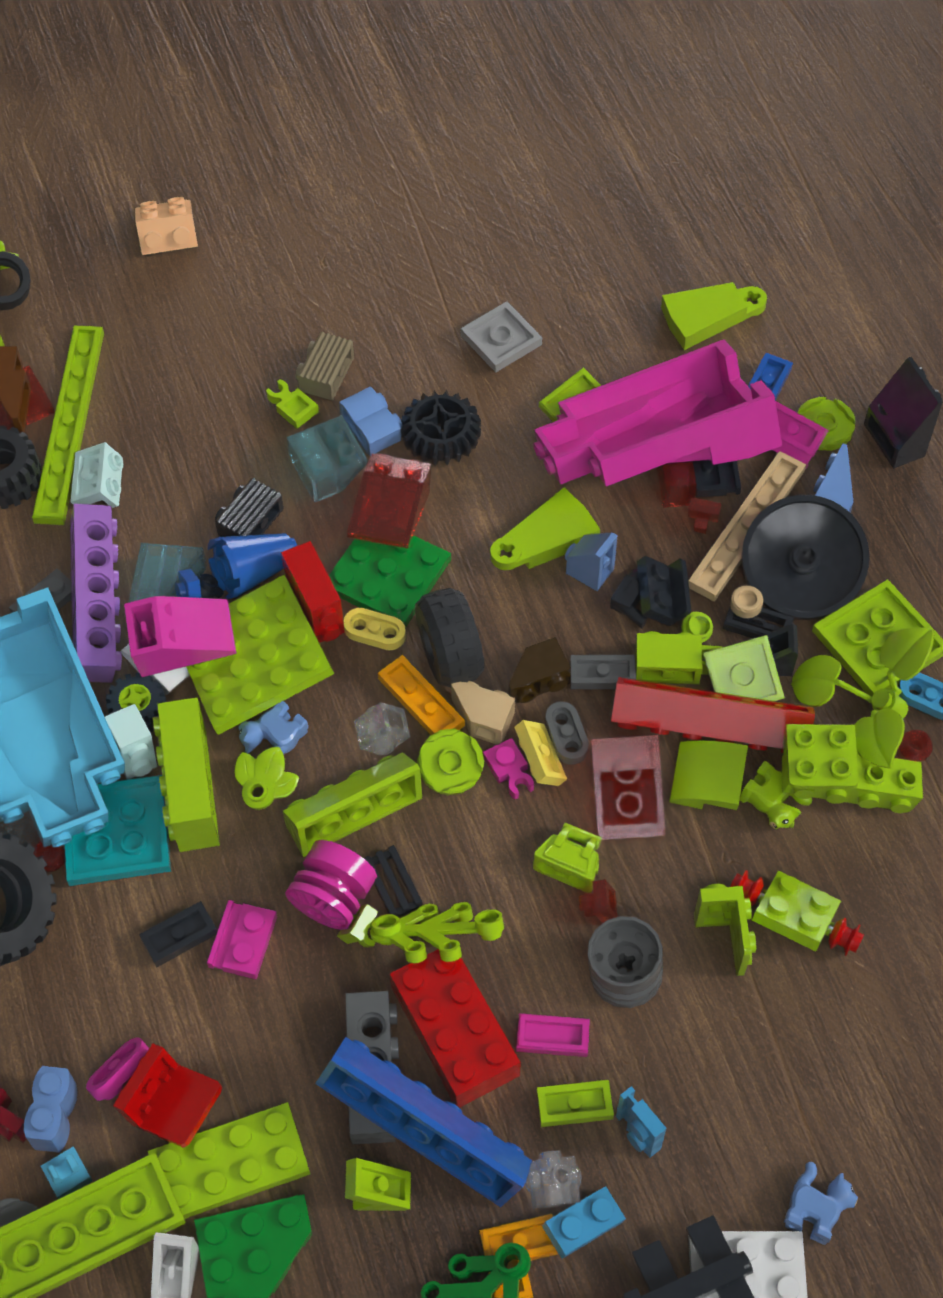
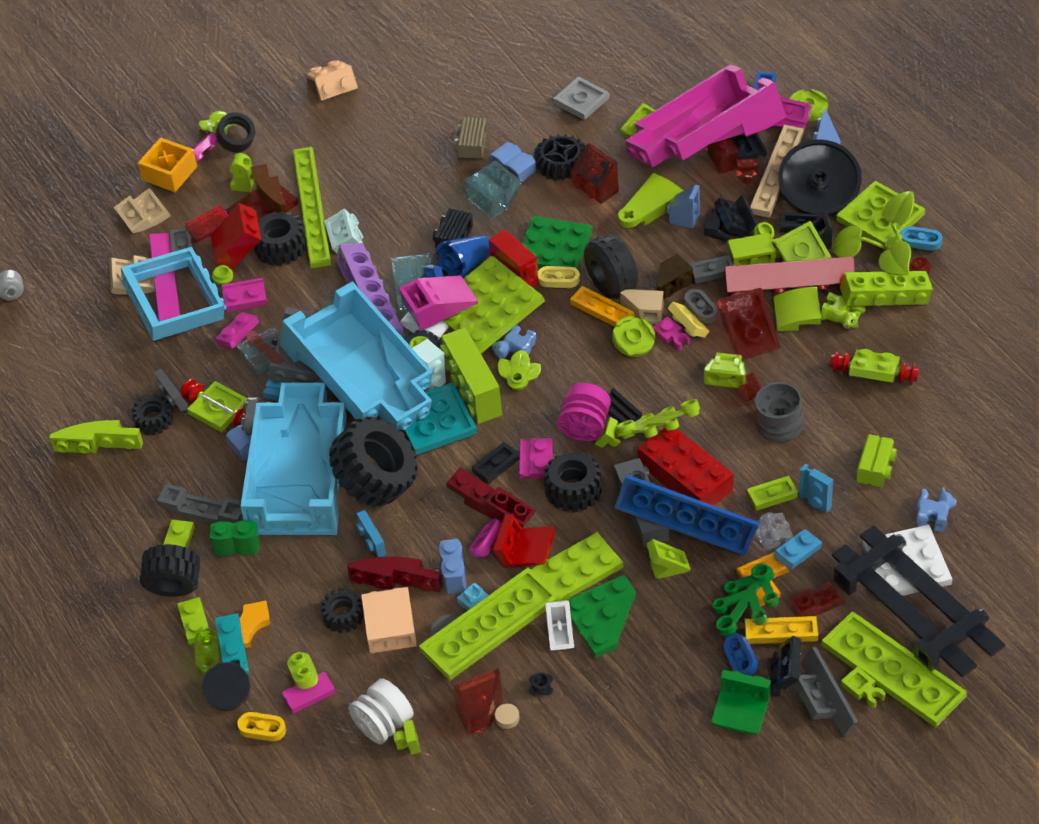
camera: 10 degrees left, 10 degrees down
(147, 1000) = (487, 500): none -> dark red slope
(270, 976) = (573, 495): none -> black tyre
(293, 406) = (458, 165): lime plate -> none
(354, 802) = (584, 367): lime slope -> none
(382, 728) = (584, 327): clear brick -> none
(390, 500) = (544, 201): clear red slope -> none
(478, 472) = (595, 174): none -> clear red slope
(553, 1035) = (748, 463): dark pink tile -> none
(709, 310) = (712, 55): lime piece -> none
(723, 907) = (833, 371): lime bracket -> none
(746, 601) = (790, 211): tan tile -> none
(751, 1087) = (875, 460): none -> lime brick
(821, 756) = (864, 274): lime bracket -> none
(904, 415) = (858, 85): black slope -> none

